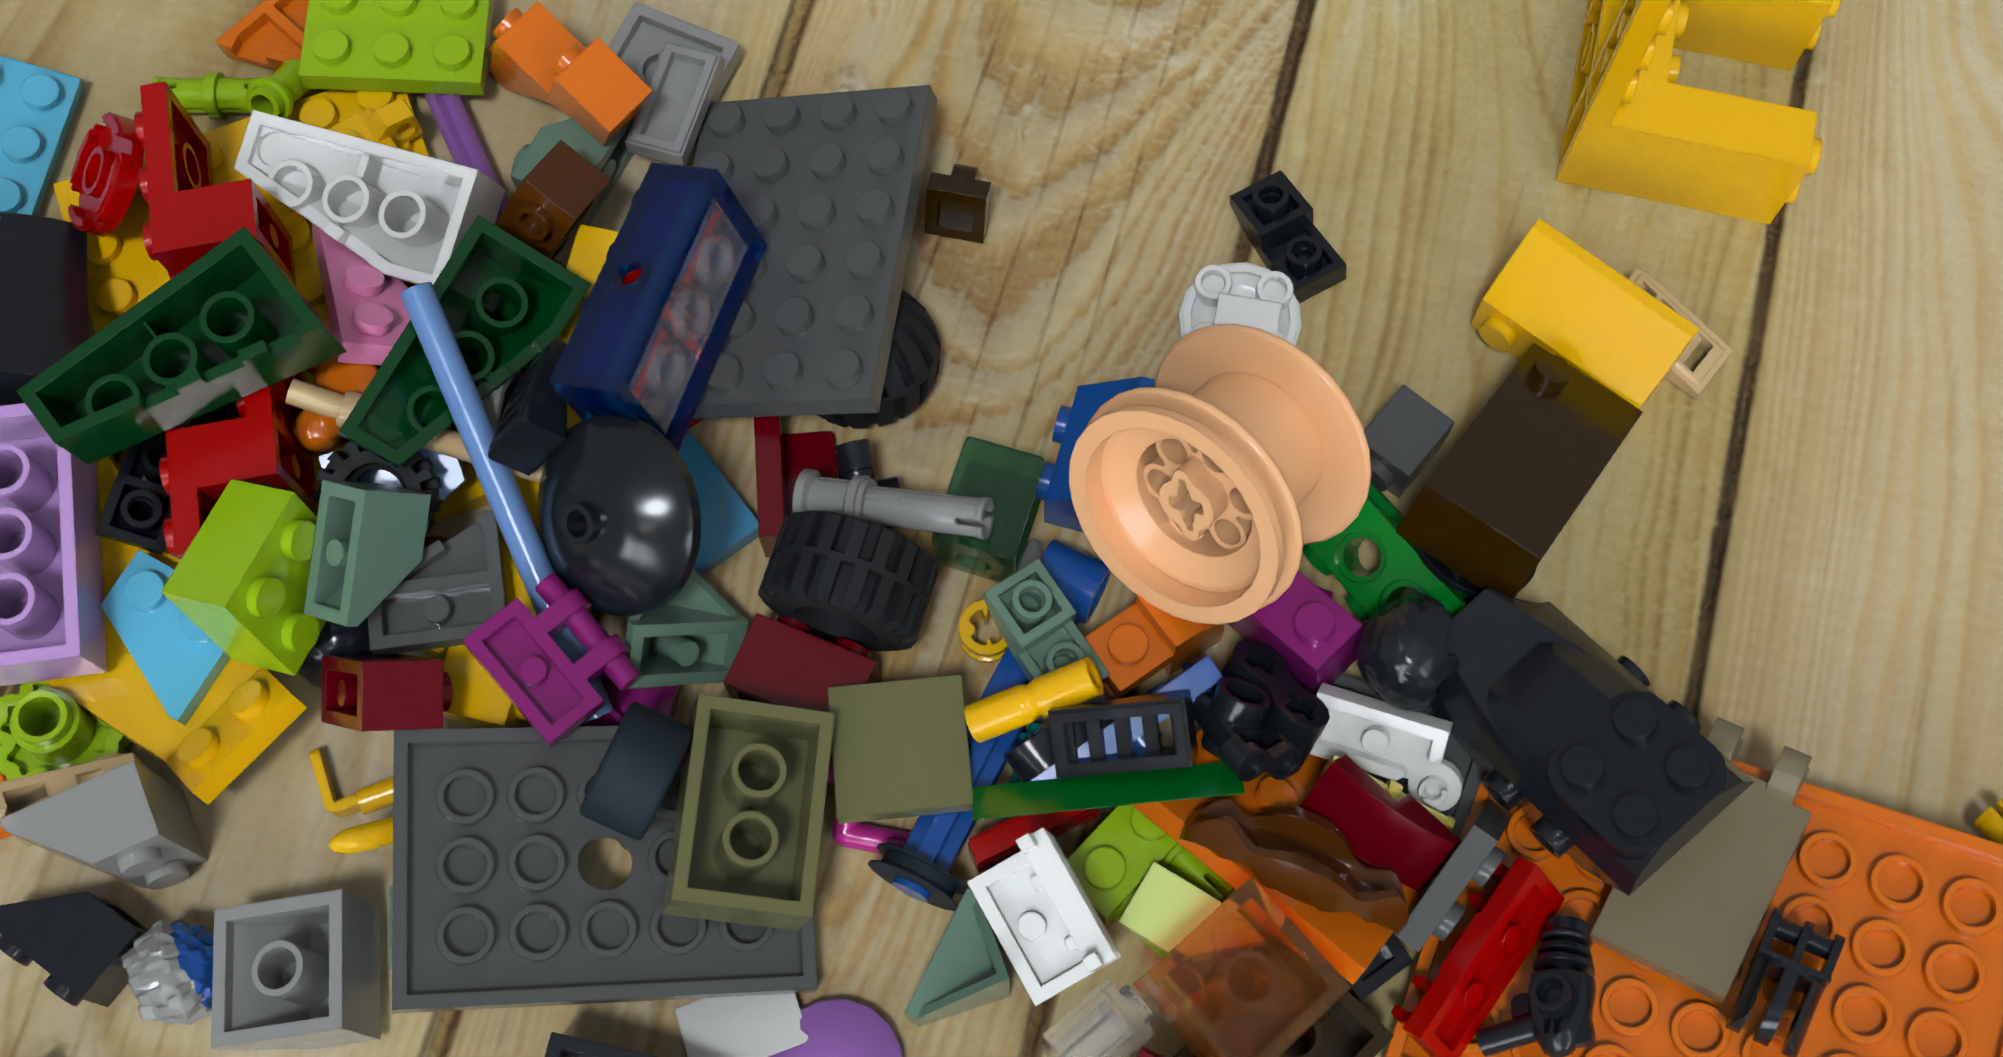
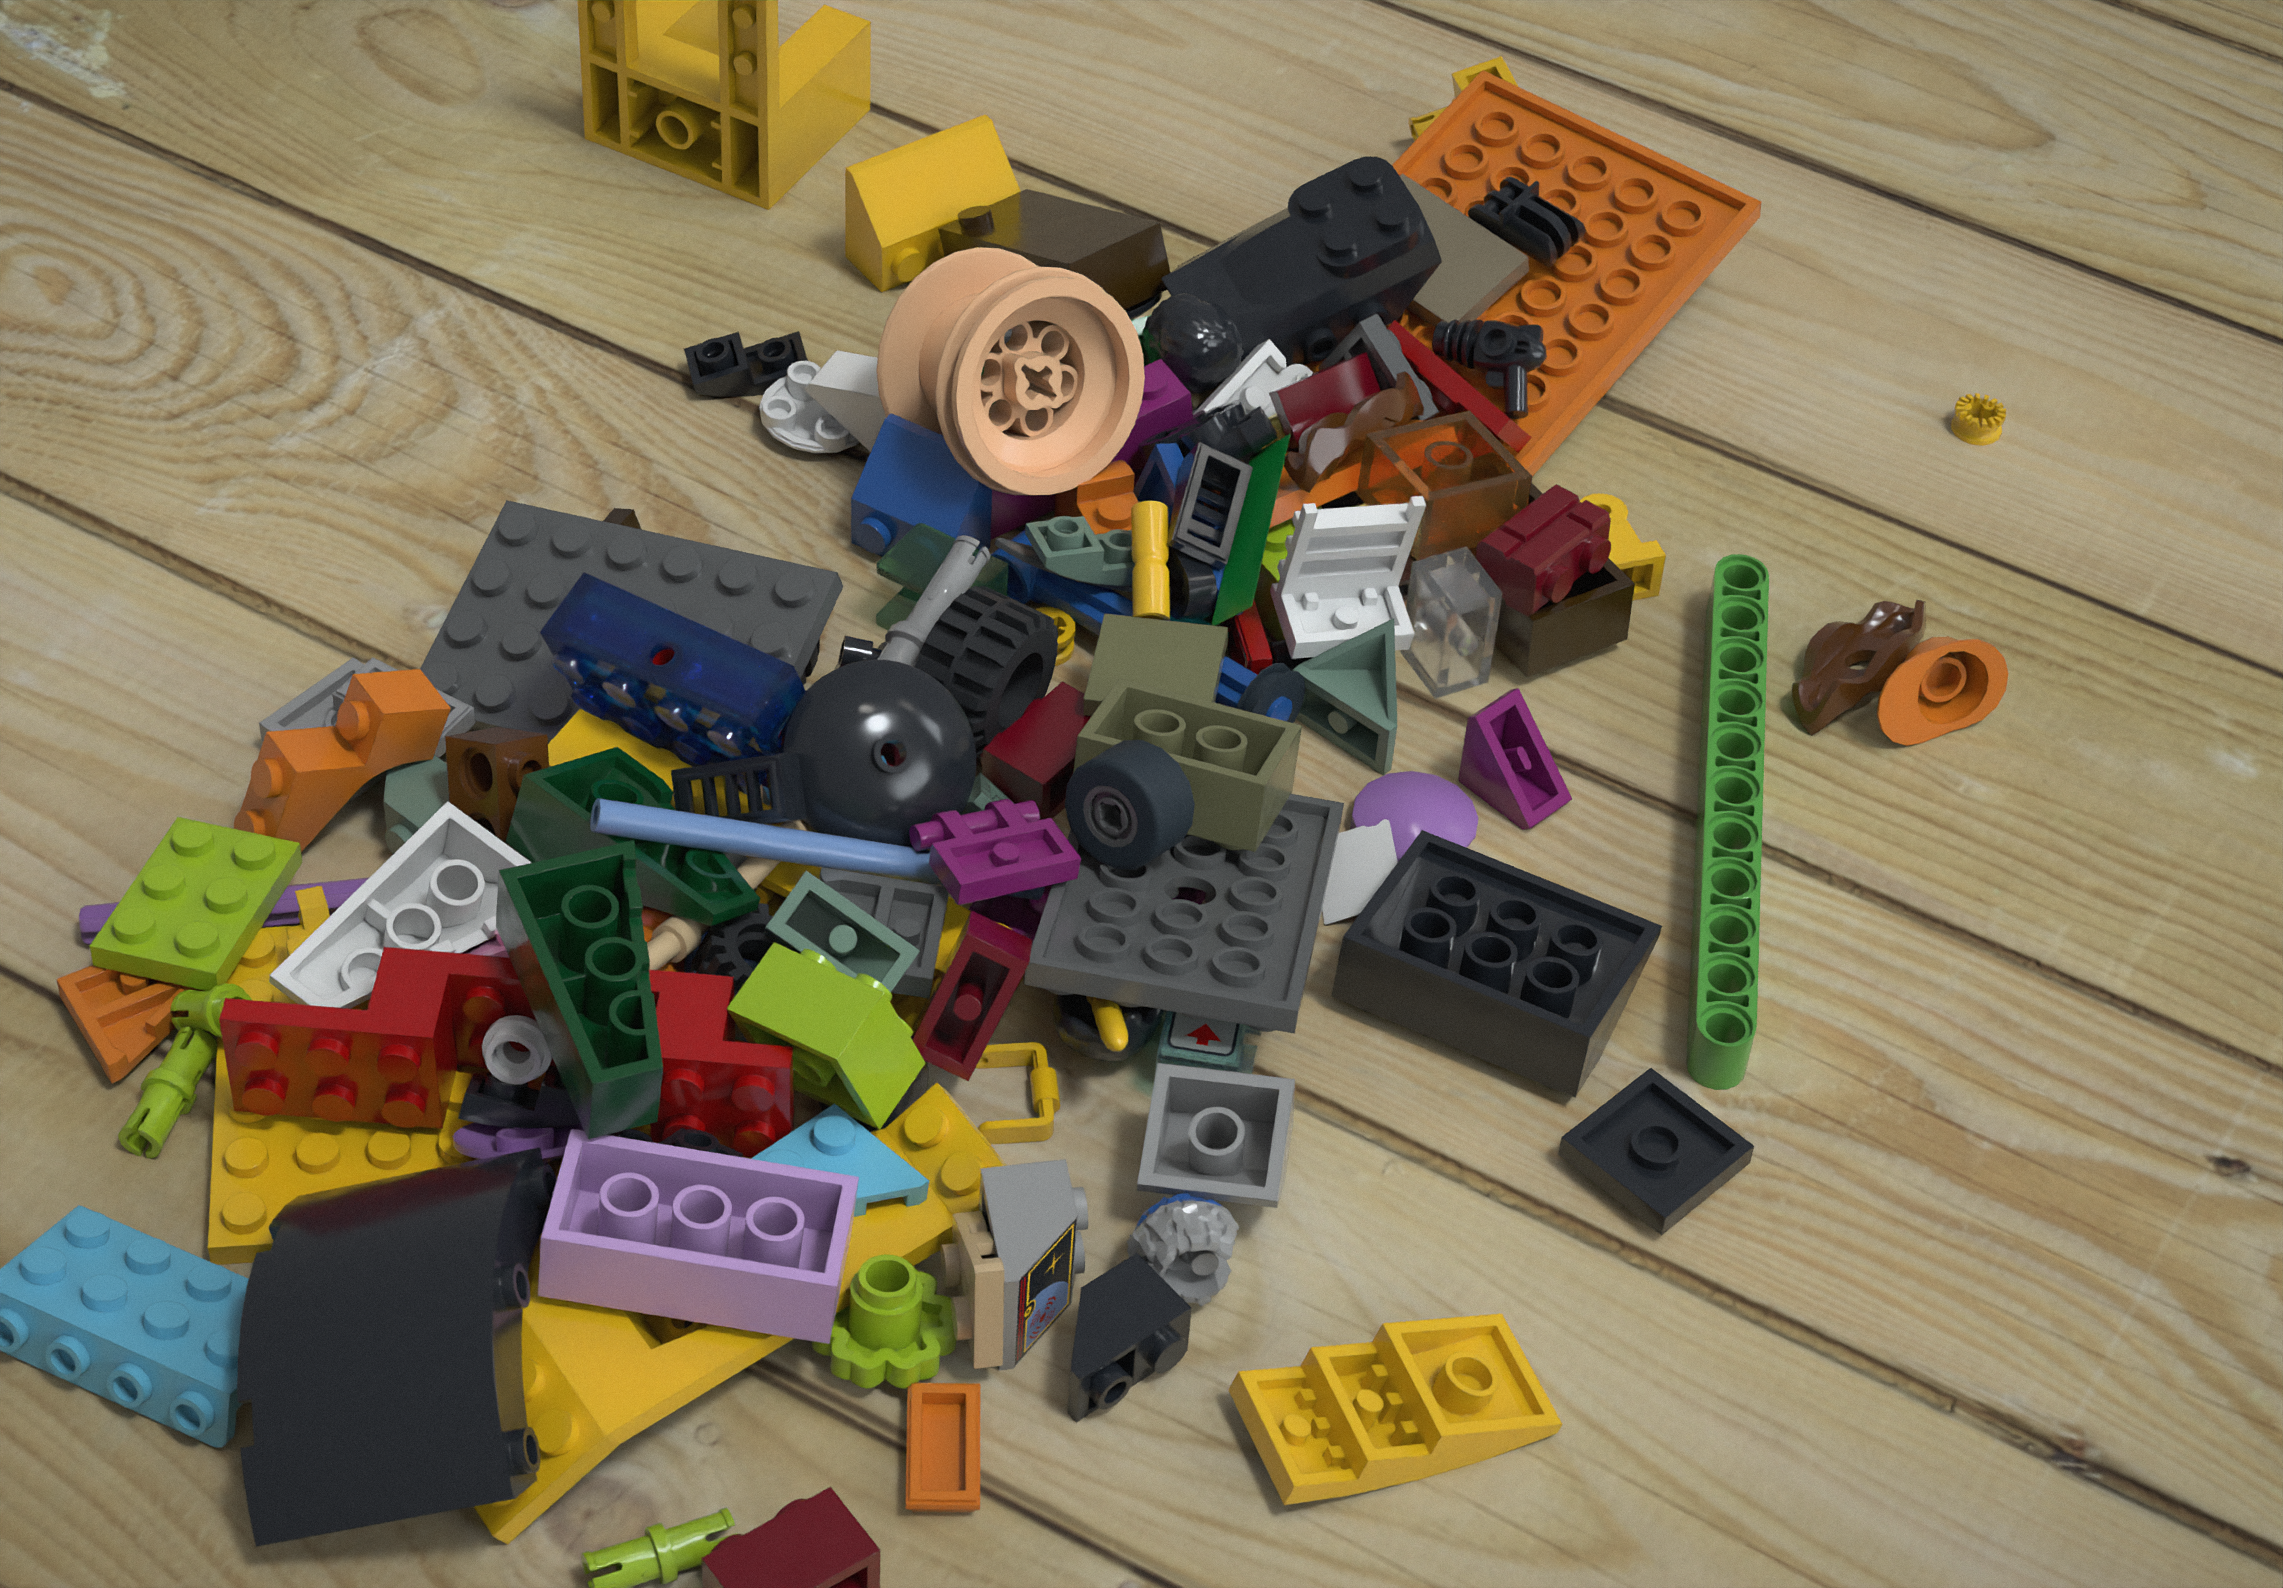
camera: 80 degrees left, 25 degrees down
(106, 175) = (266, 1134): red tile -> none

